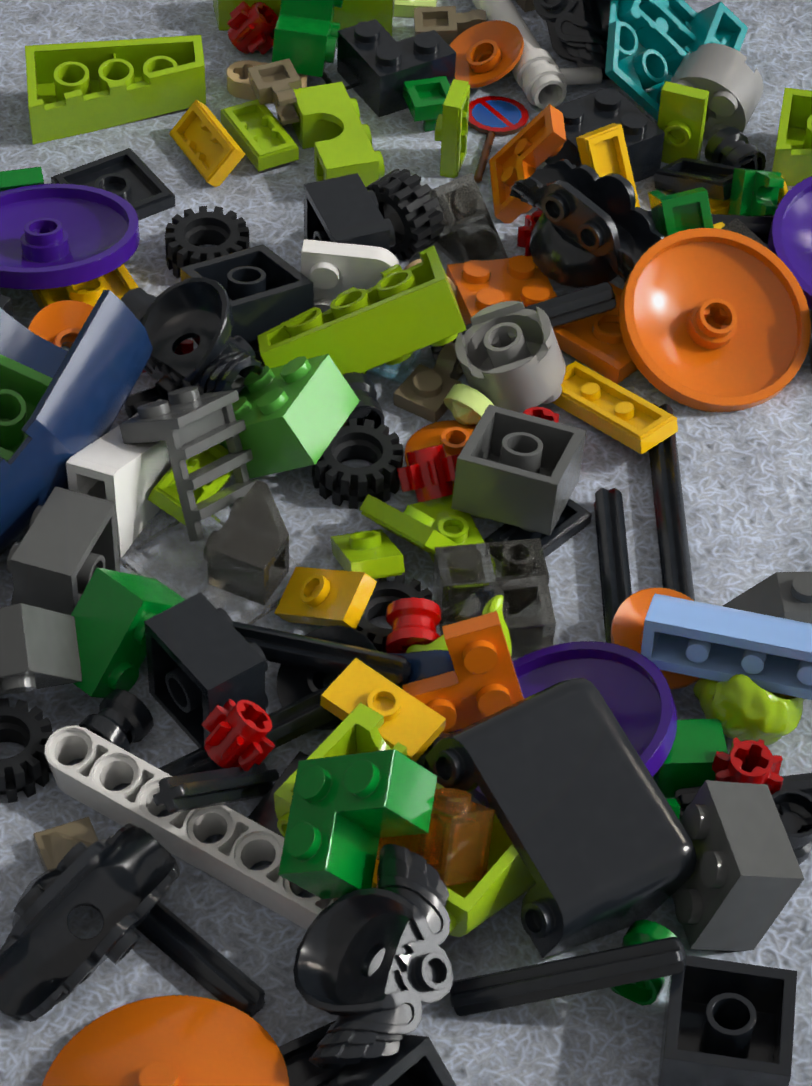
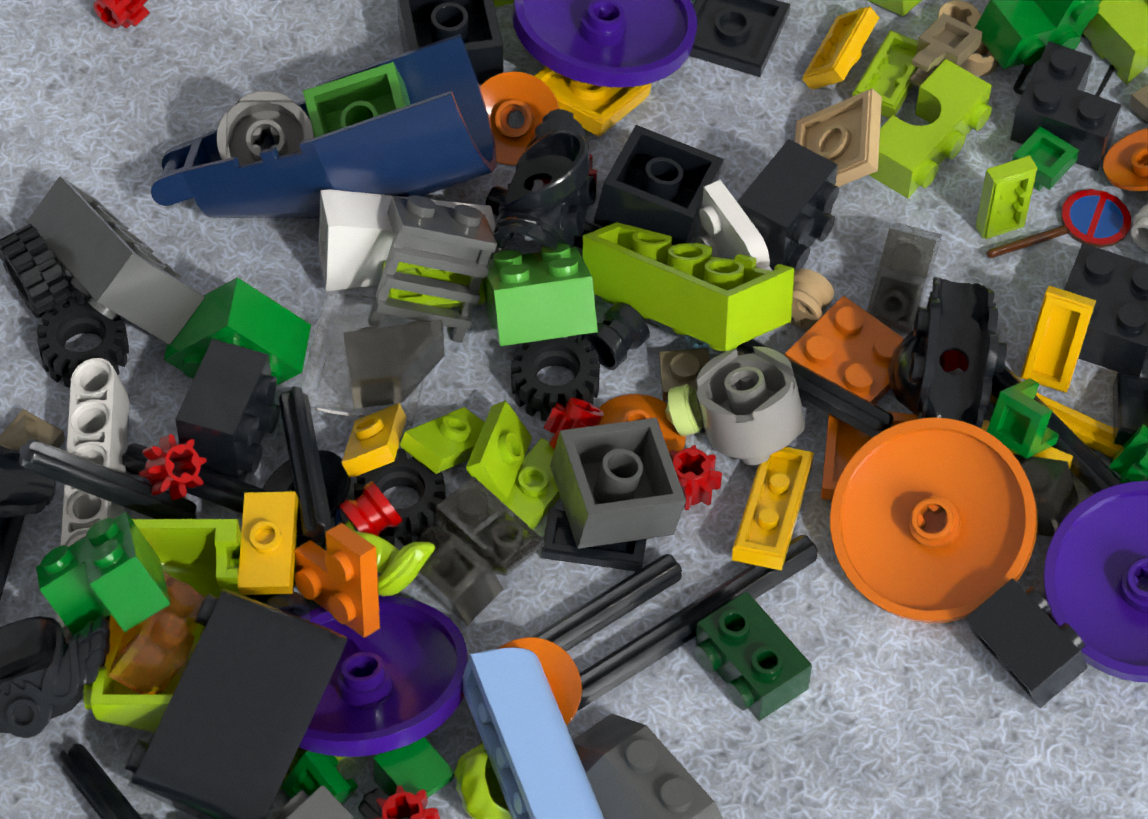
camera: 55 degrees right, 10 degrees up
(63, 549) = (270, 252): dark grey brick -> none
(121, 719) = (152, 393): black wheel -> none
(203, 228) = (725, 107): black tyre -> none
(281, 189) = (845, 135): none -> tan plate
(409, 210) = (862, 227): black tyre -> none
(520, 158) = (1028, 266): orange plate -> none
(742, 492) = (751, 656): none -> dark green brick

